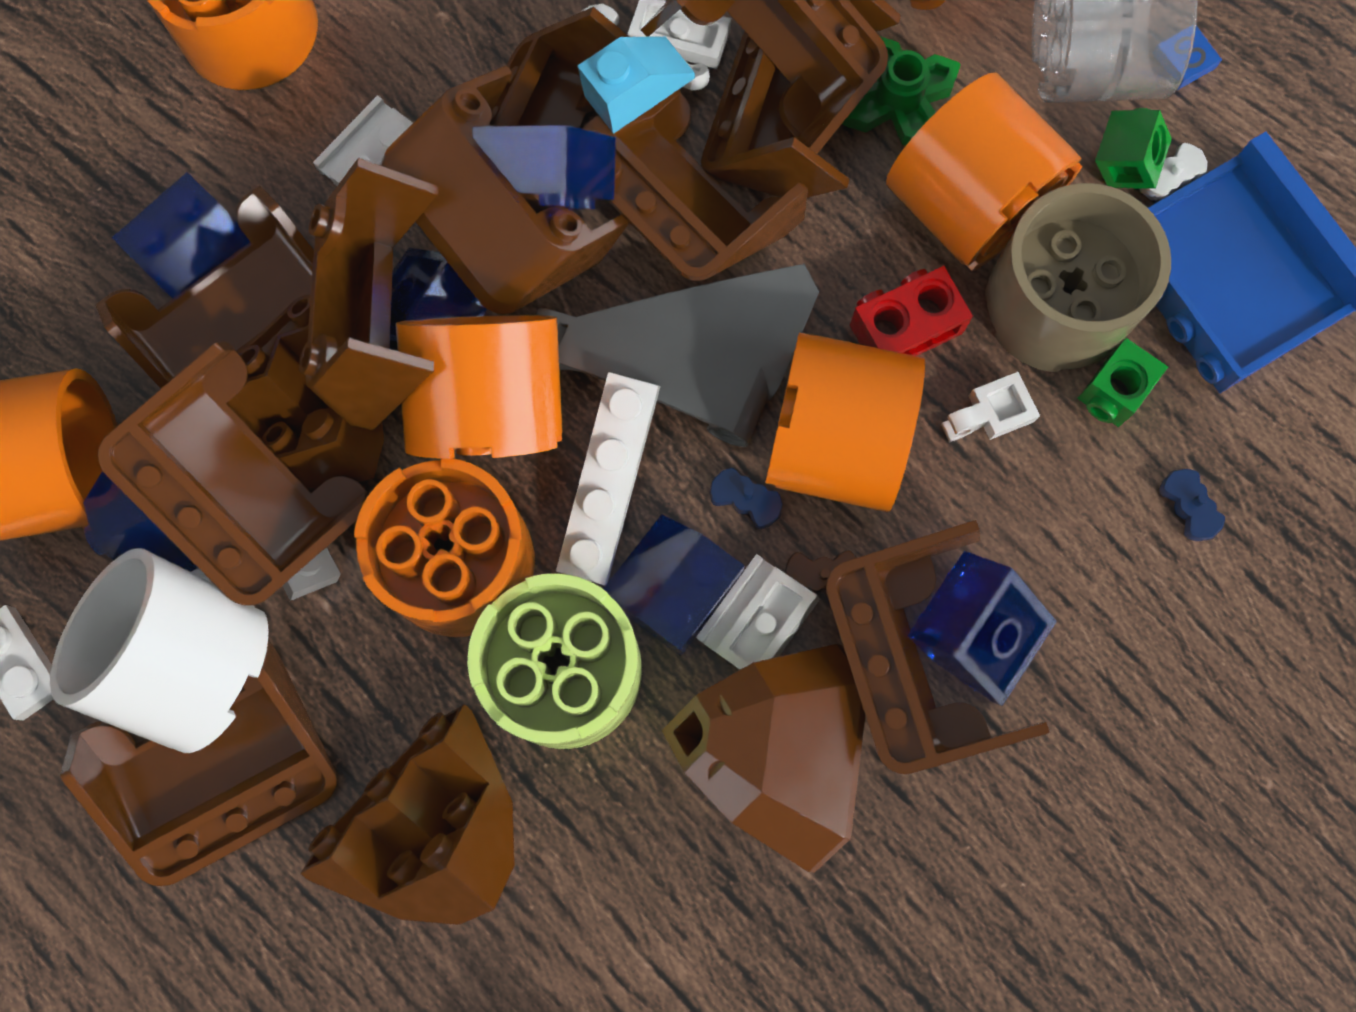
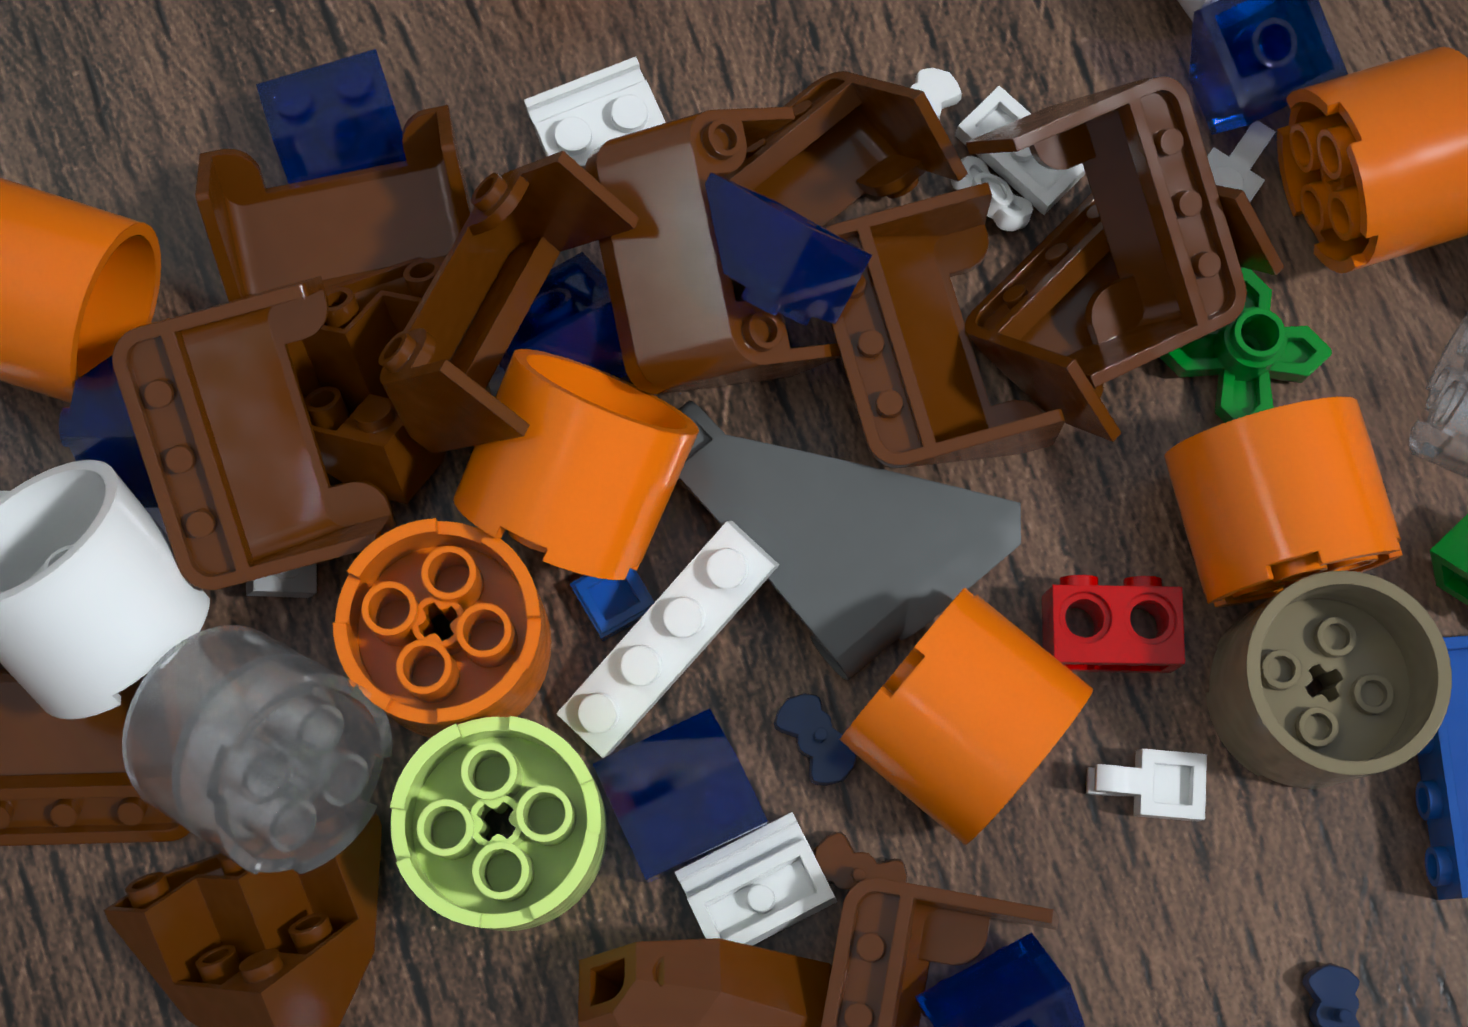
camera: 20 degrees right, 0 degrees up
(352, 697) = (256, 749): none -> clear brick
(553, 474) = (612, 603): none -> blue tile
(632, 78) = (929, 194): medium azure slope -> none
(1133, 368) = (1348, 824): green brick -> none

